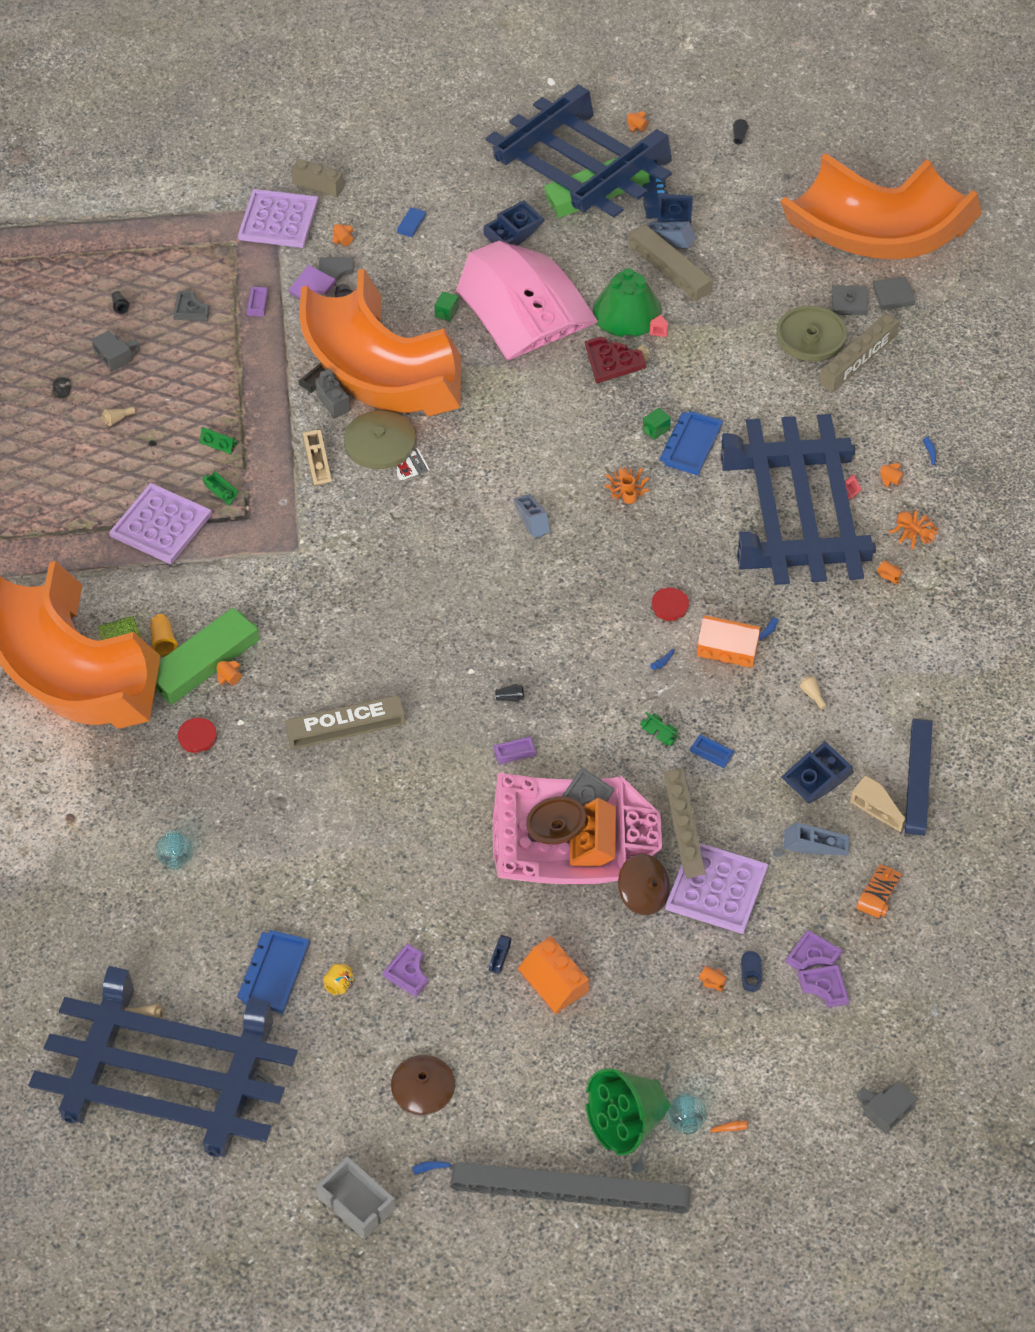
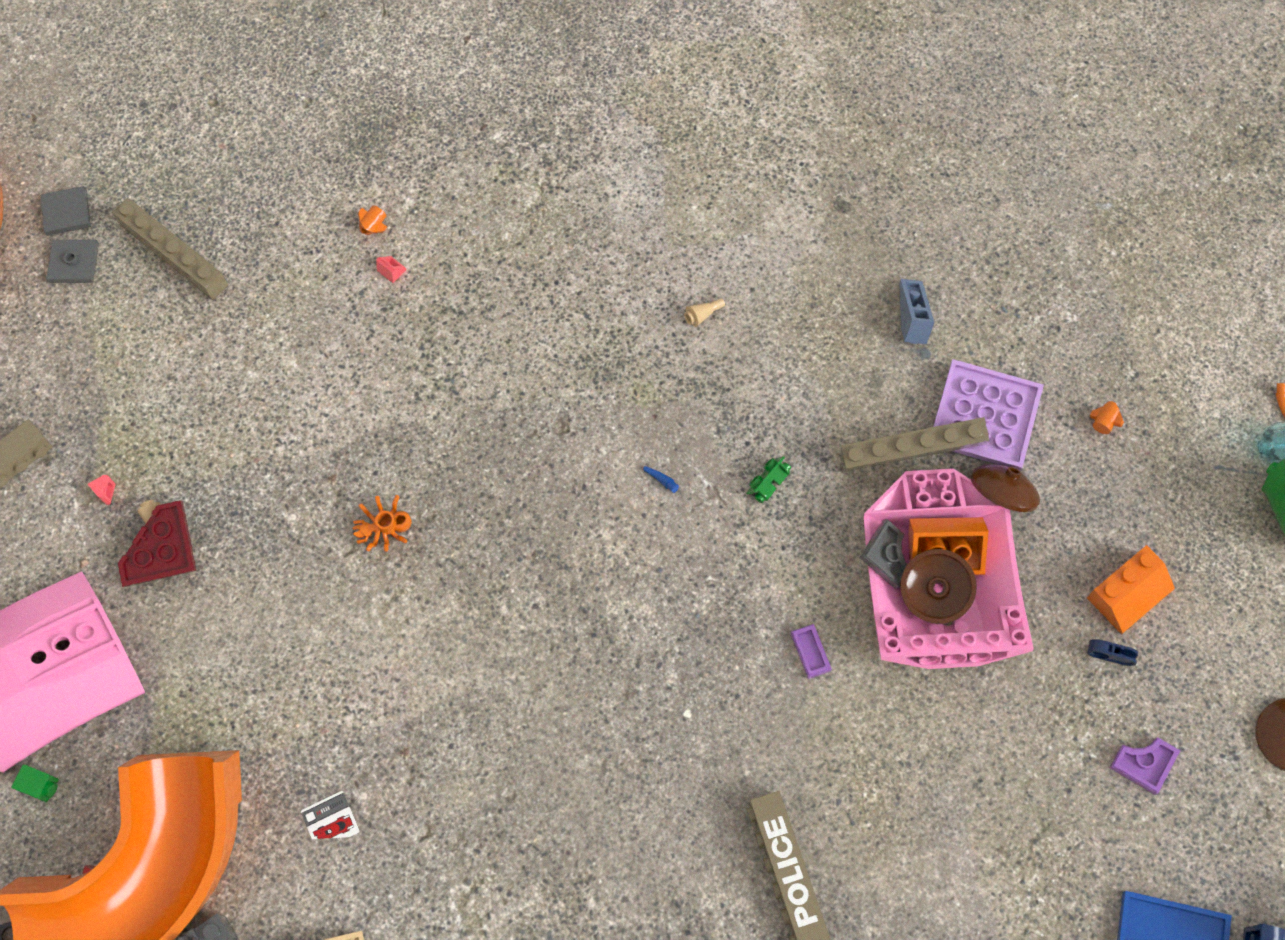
camera: 90 degrees left, 15 degrees up
(338, 979) = (1180, 846): yellow head -> none
(379, 439) = (285, 866): olive dish -> none
(510, 693) = (727, 659): black cone -> none
(532, 515) = (432, 644): sand blue slope -> none
(626, 305) = (62, 533): green cone -> none
(656, 423) = (278, 490): green brick -> none
(670, 604) = (574, 471): red tile -> none
(691, 442) = (307, 447): blue hinge -> none
(712, 751) = (793, 422): blue tile -> none
(728, 641) = (643, 400): slope -> none
(751, 967) = (1083, 380): dark blue piece -> none
(771, 626) = (611, 360): blue helmet -> none
(797, 455) = (337, 321): dark blue fence -> none
(811, 333) = (135, 301): olive dish -> none
(813, 951) = (1053, 319): medium lavender tile -> none
(818, 773) = (820, 308): dark blue slope -> none
(825, 983) = (1092, 306): medium lavender tile -> none
(875, 800) = (853, 248): tan slope -> none
(877, 892) = (982, 251): orange door -> none
(888, 1107) = (1236, 247): dark grey hinge -> none
(889, 572) = (522, 226): orange piece -> none
(913, 528) = (455, 201): orange animal -> none
(918, 777) = (815, 206): dark blue beam -> none
(931, 449) = (330, 178): blue helmet -> none

